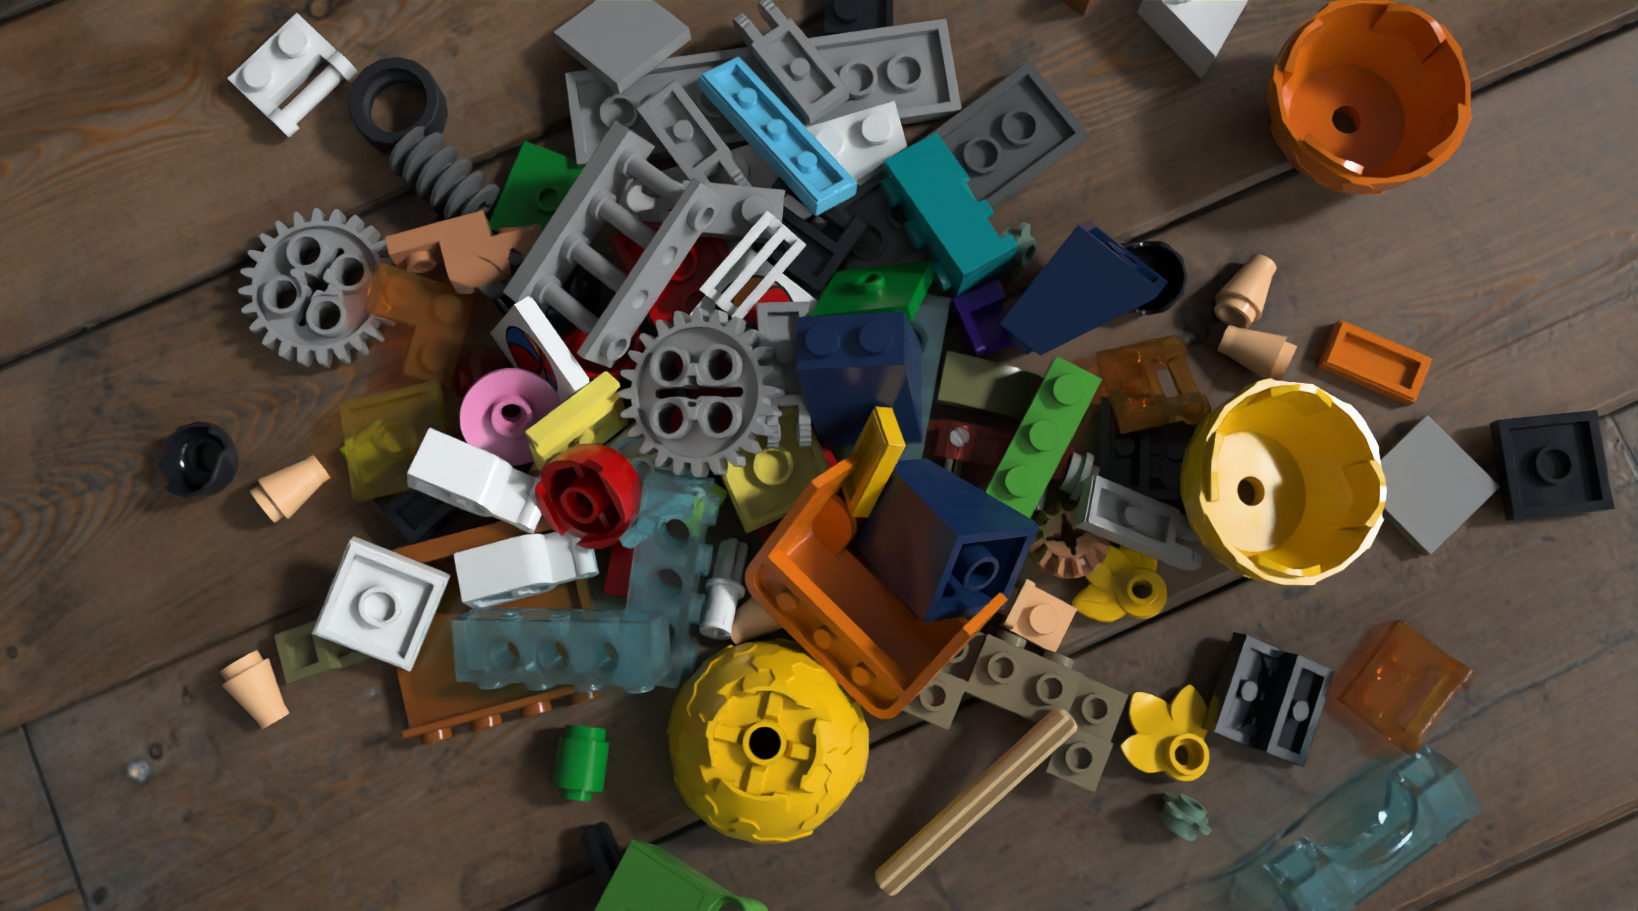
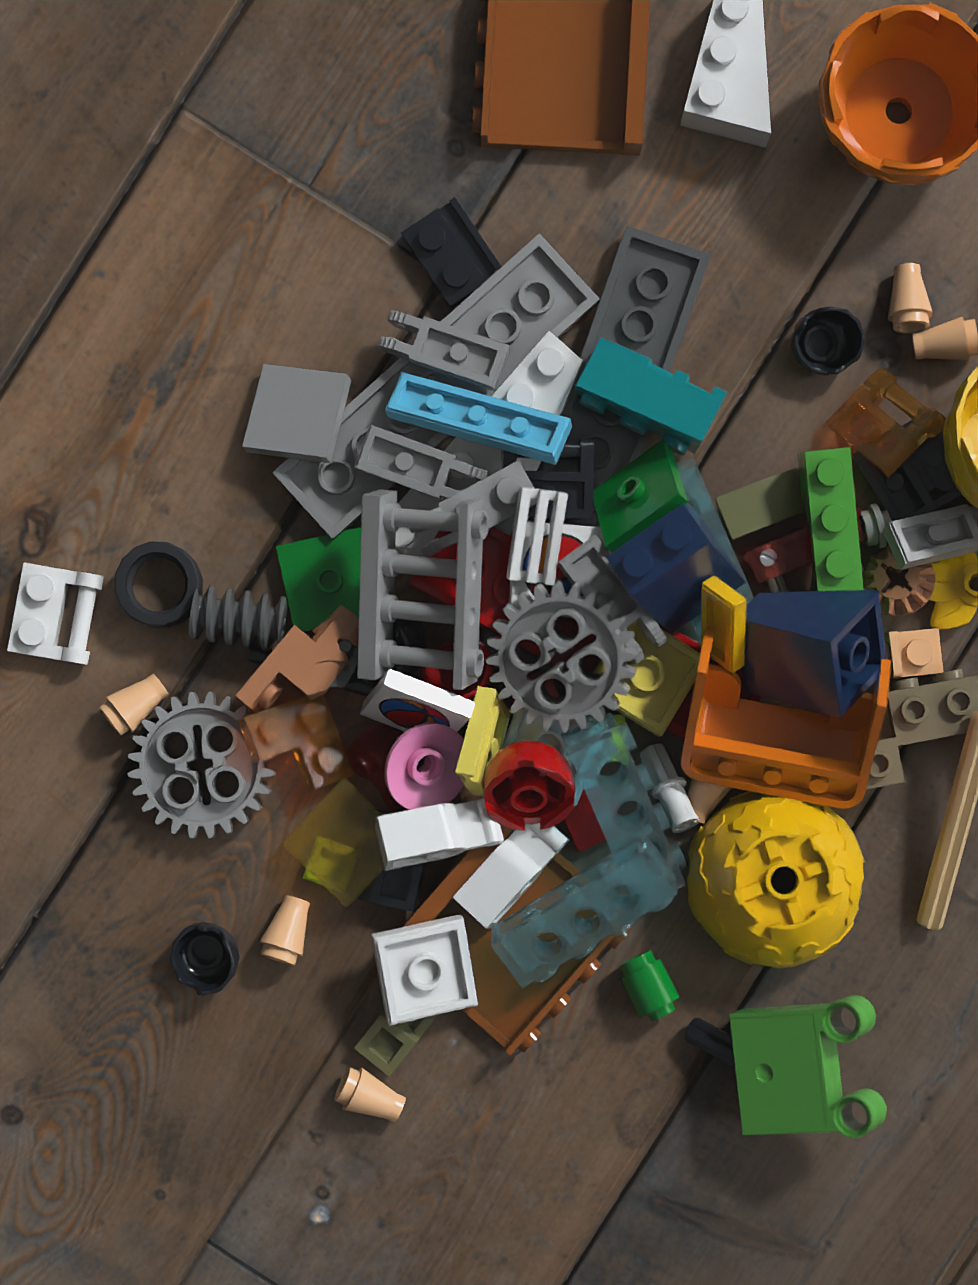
camera: 30 degrees left, 5 degrees up
(300, 194) = (133, 704): none -> light nougat cone
(979, 318) = (725, 455): dark purple panel -> none
(1026, 250) = (713, 376): sand green plate -> none
(1079, 290) = (792, 388): dark blue slope -> none

